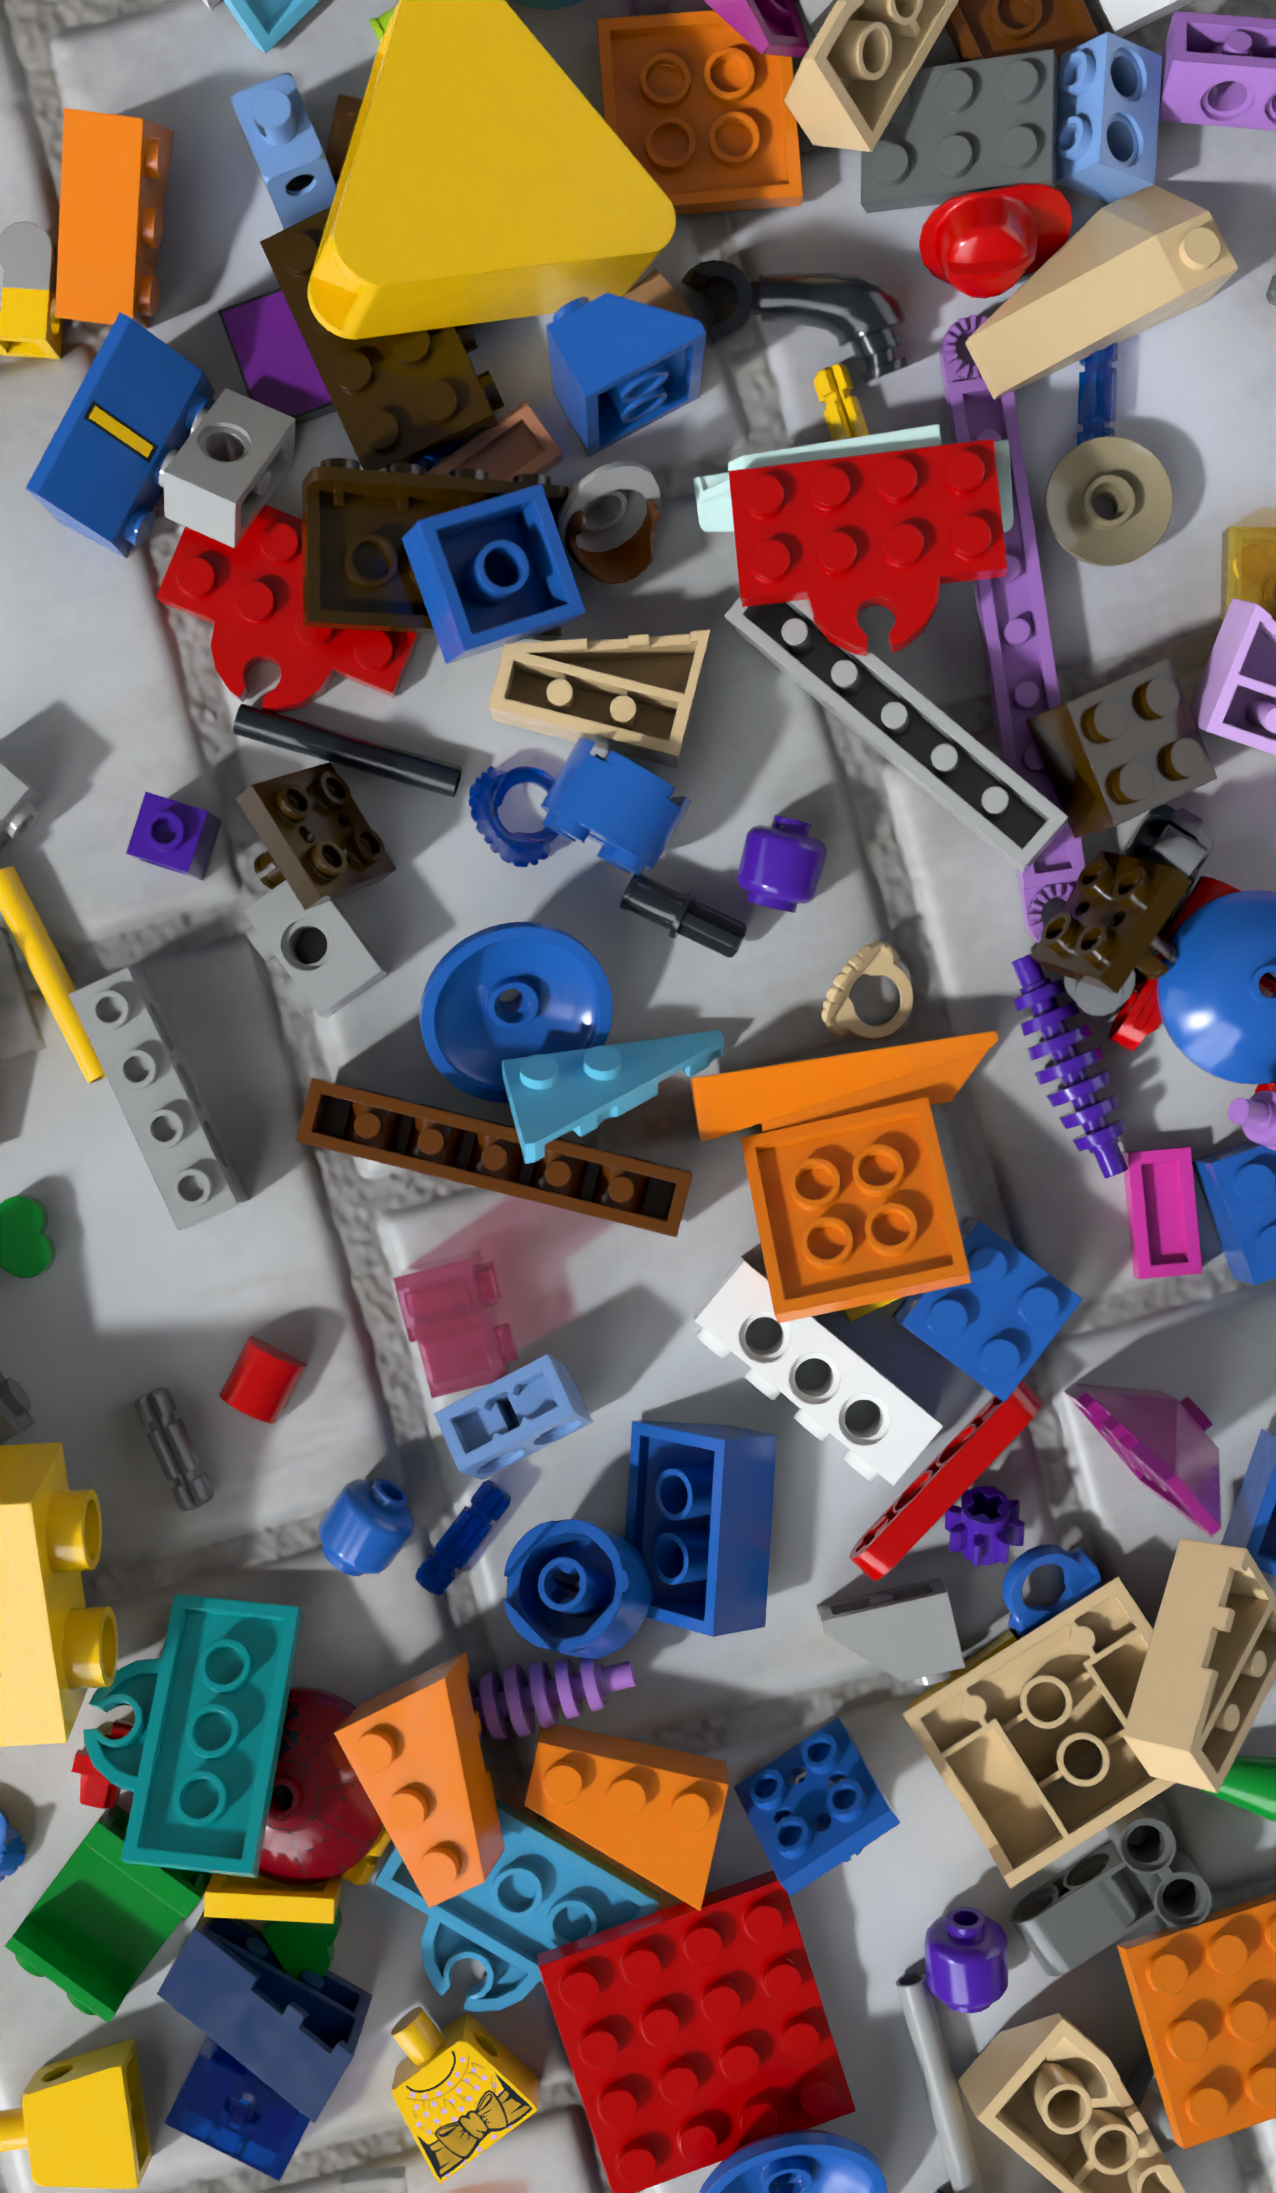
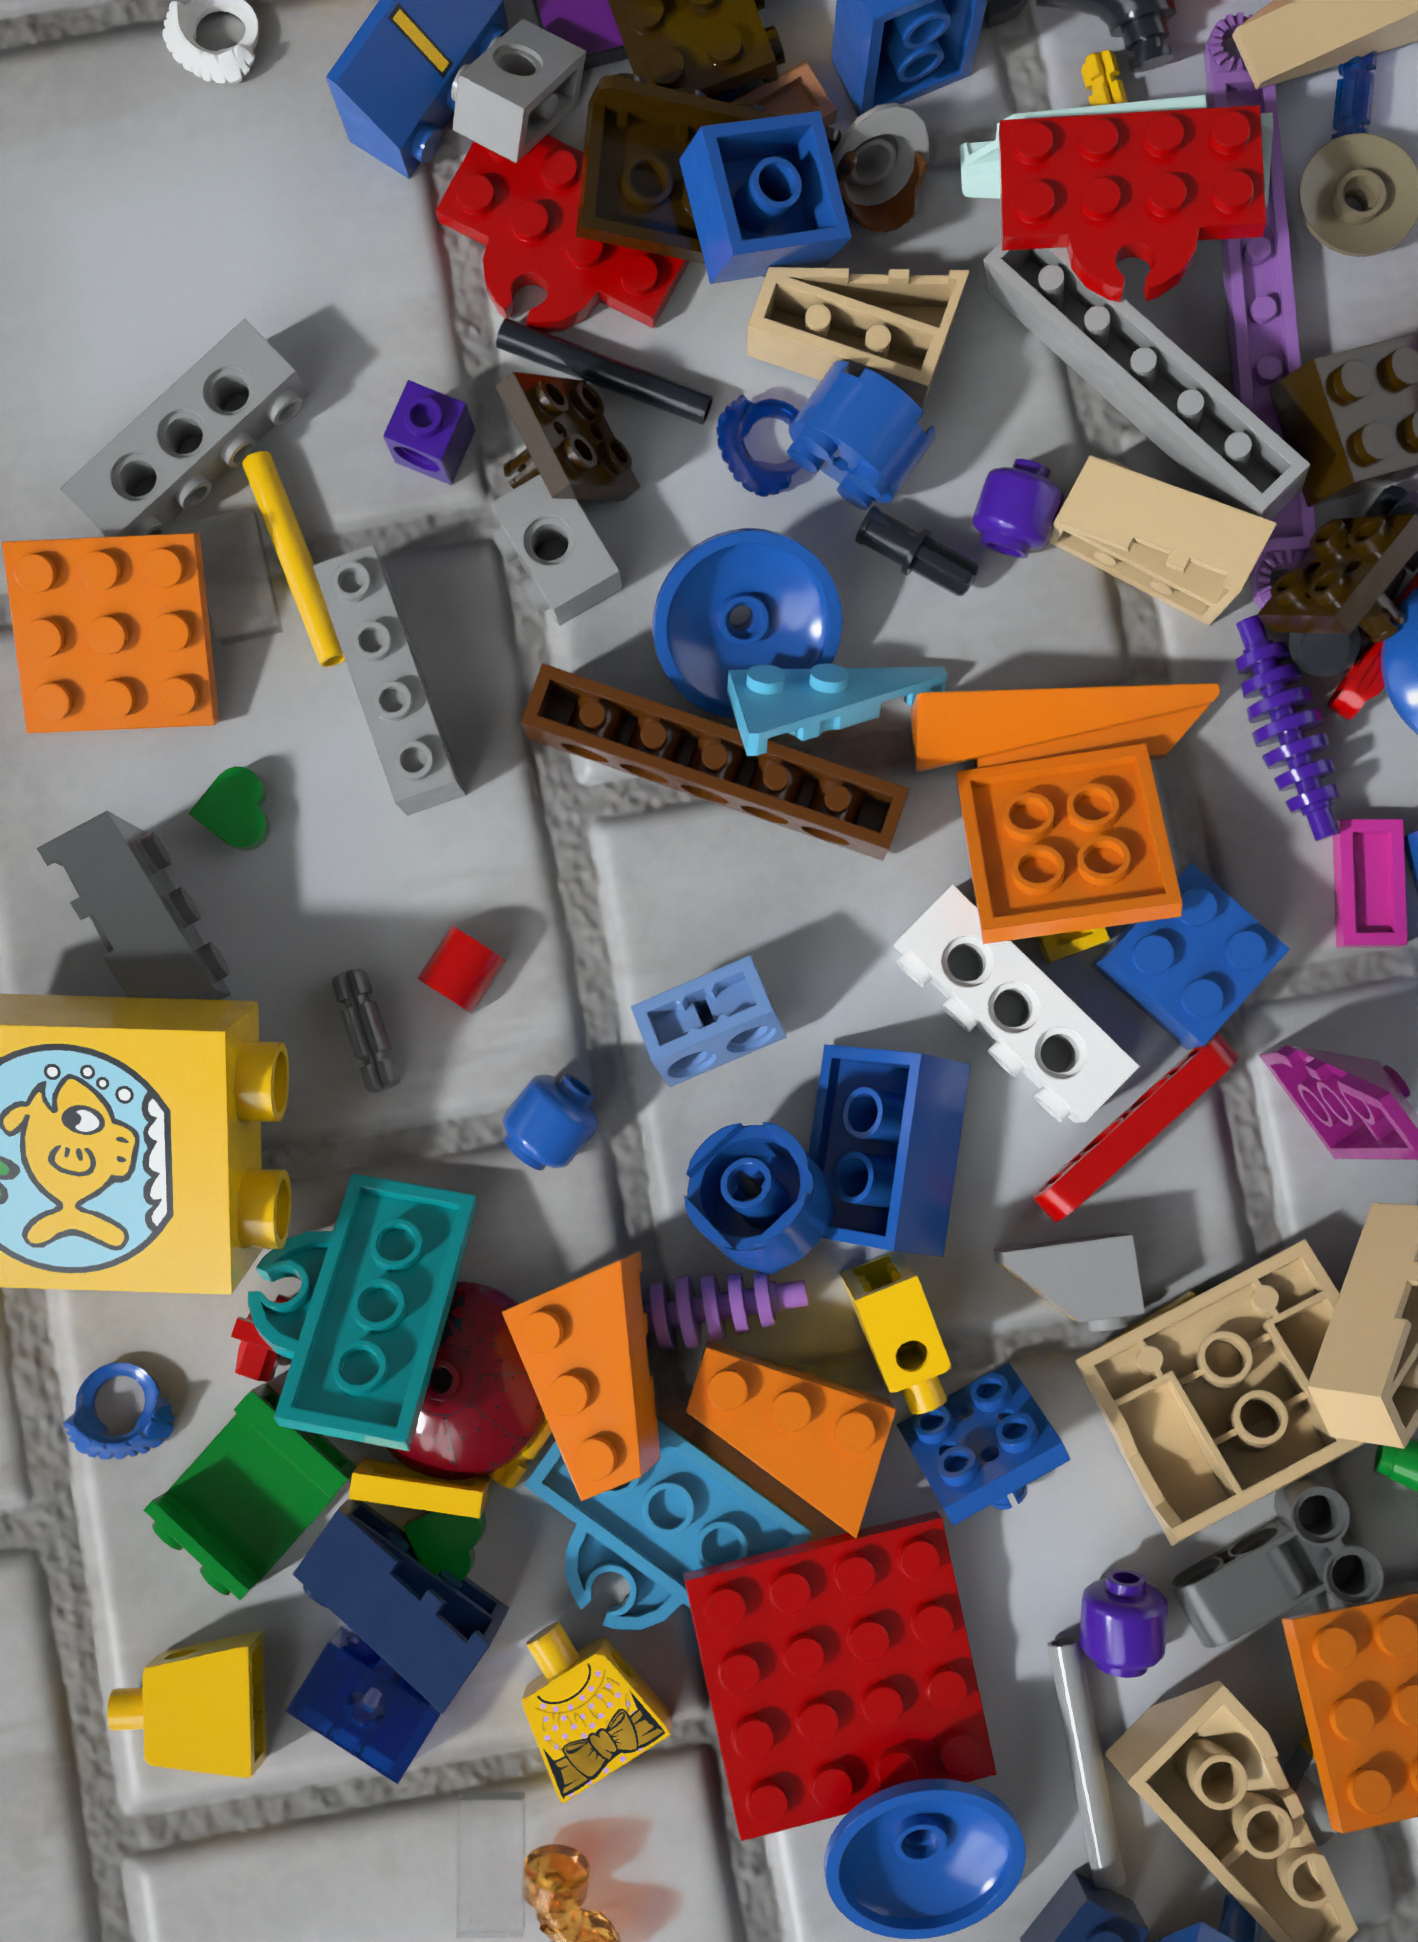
camera: 10 degrees right, 5 degrees down
(455, 1322) = (657, 920): clear pink brick -> none
(463, 1537) = (645, 1144): clear blue axle -> none
(725, 1703) = (894, 1312): none -> yellow torso
(839, 1009) = (1063, 657): tan piece -> none
(926, 883) = (1160, 537): none -> tan wedge
(985, 1526) = (1173, 1175): dark purple gear -> none
(1080, 1578) = (1265, 1241): blue piece -> none

